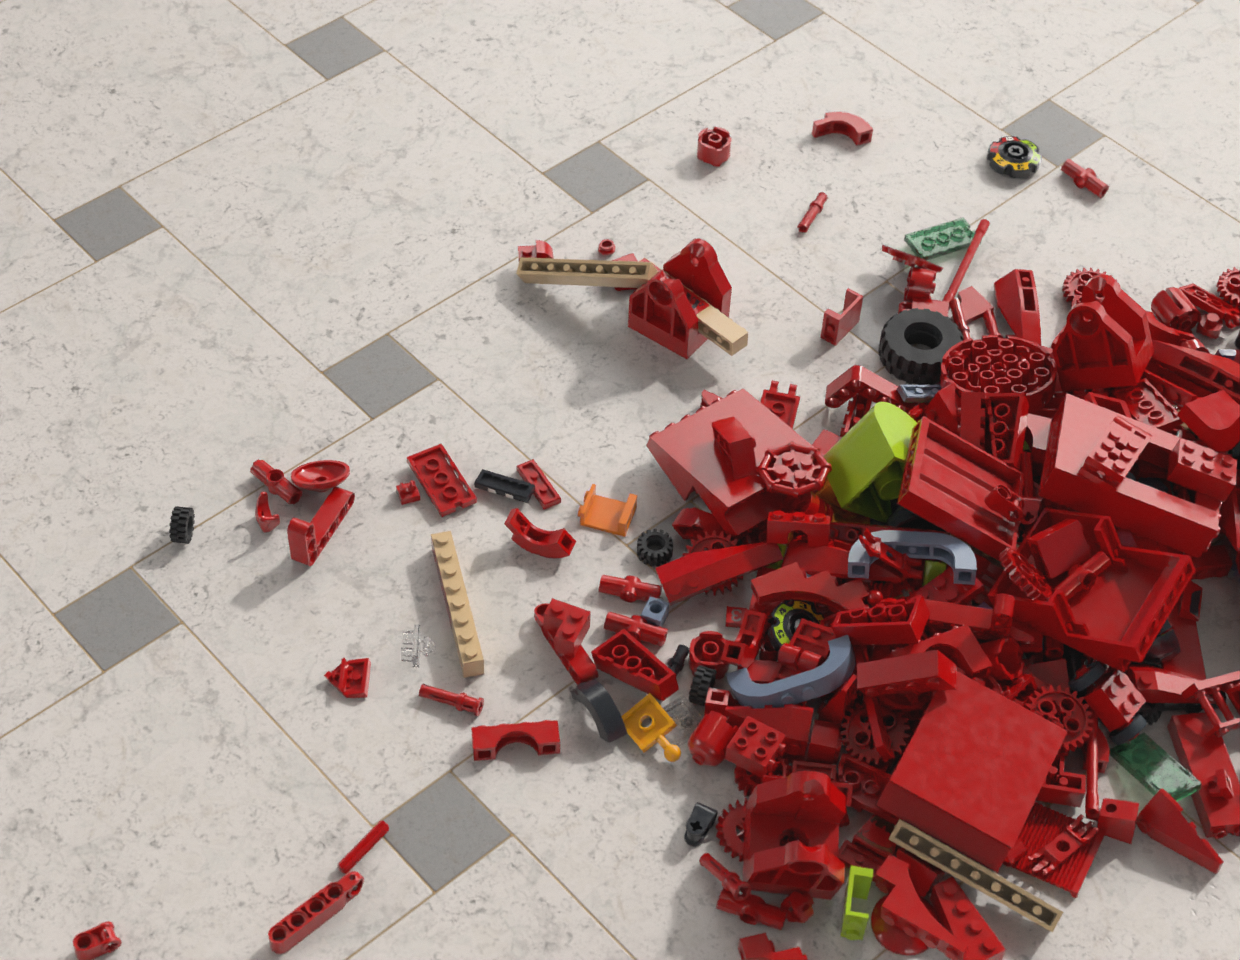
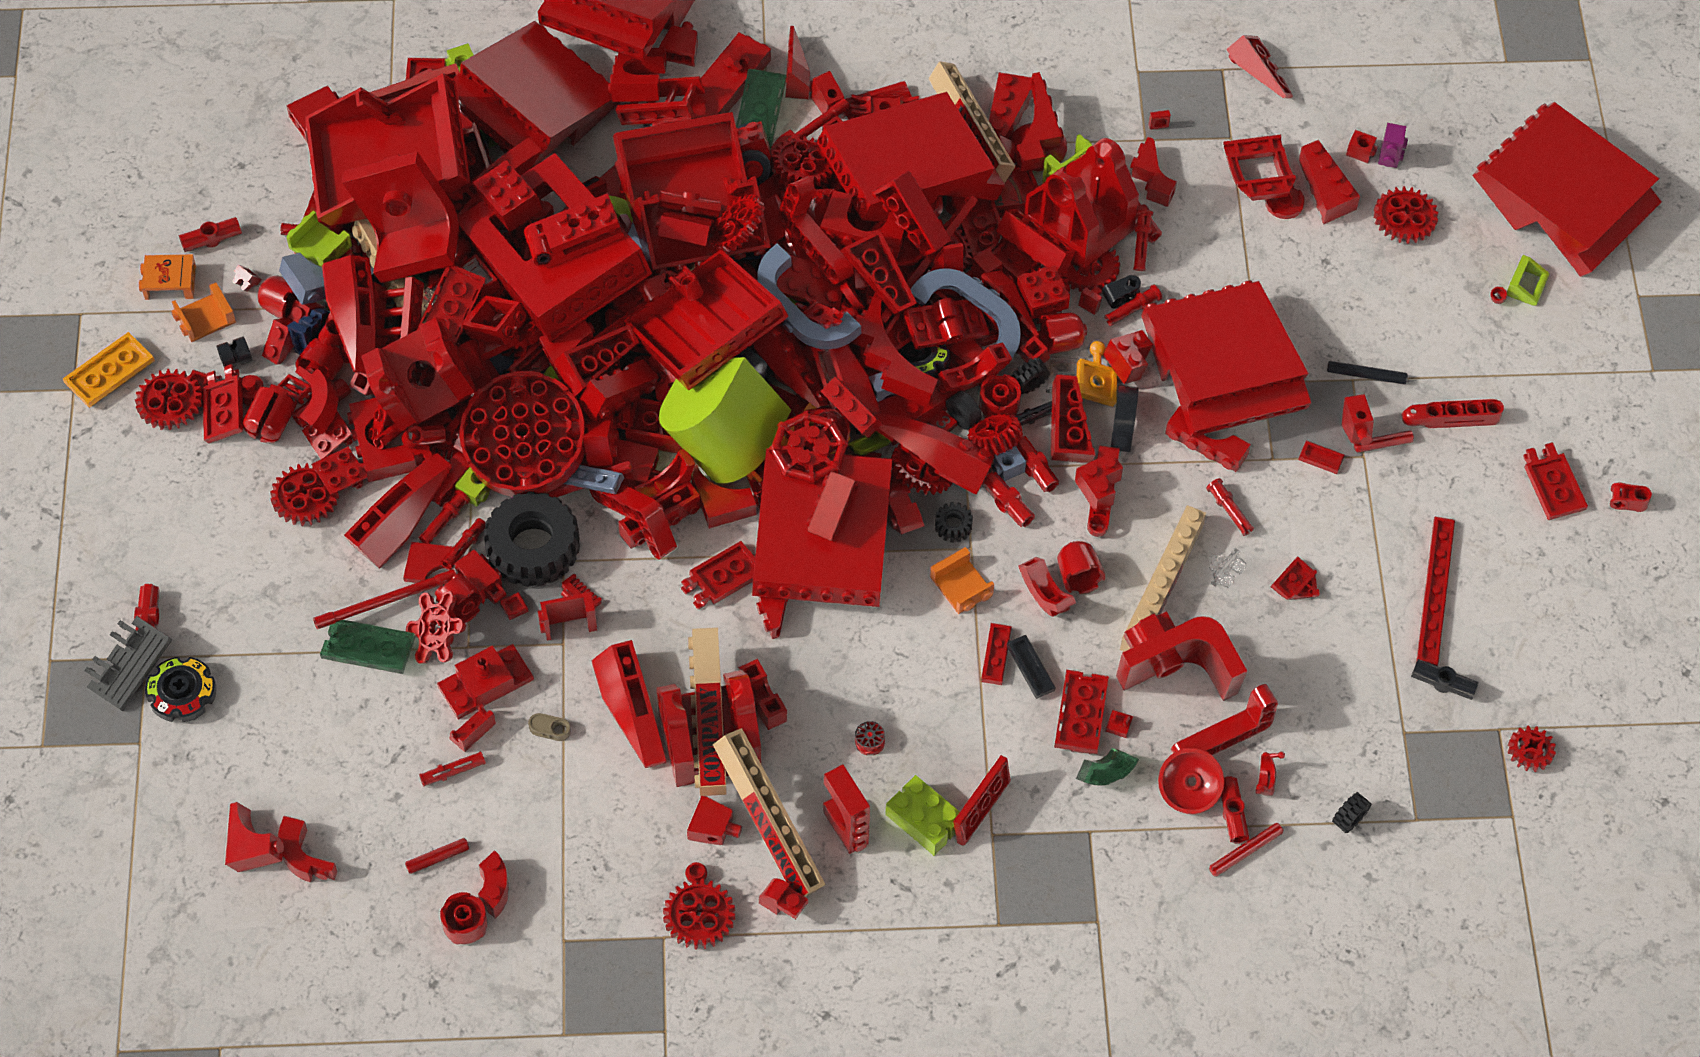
camera: 140 degrees left, 10 degrees up
(64, 663) = (1529, 742): none -> red gear
(179, 911) = (1554, 482): none -> red tile
(180, 669) = (1456, 683): none -> black piece
(229, 747) = (1435, 590): none -> red tile
(244, 474) = (1246, 849): none -> red axle
(385, 534) = (1163, 649): none -> red piece
(389, 448) = (1108, 769): none -> clear green brick
(394, 829) = (1358, 428): none -> red torso
(408, 796) = (1321, 457): none -> red tile
(425, 903) = (1367, 372): none -> black axle
(458, 375) = (982, 800): none -> red tile
(491, 353) = (923, 814): none -> lime piece
(528, 315) = (847, 809): none -> red arch
(529, 566) = (1080, 567): none -> red cylinder
(556, 800) = (1226, 357): none -> red panel
(573, 378) = (870, 738): none -> red wheel
(581, 227) = (697, 932): none -> red gear
(643, 755) = (1128, 355): none -> red brick
(655, 350) = (767, 704): none -> red arch
(676, 826) = (1139, 302): none -> red pin
(682, 617) = (996, 433): none -> red gear
(717, 171) = (496, 884): none -> red brick
(718, 796) = (1090, 300): none -> red tile
(726, 621) = (963, 410): none -> black tyre
(762, 310) = (628, 700): none -> red wedge
(768, 171) = (437, 855): none -> red axle
(787, 266) = (544, 725): none -> dark tan piece
(827, 237) = (473, 729): none -> red hinge
(851, 265) = (484, 679): none -> red brick
(857, 344) = (570, 590): none -> red piece
(876, 109) = (246, 847): none -> red arch
(885, 314) = (514, 606): none -> red tile
(1061, 146) = (129, 664): none -> dark grey hinge

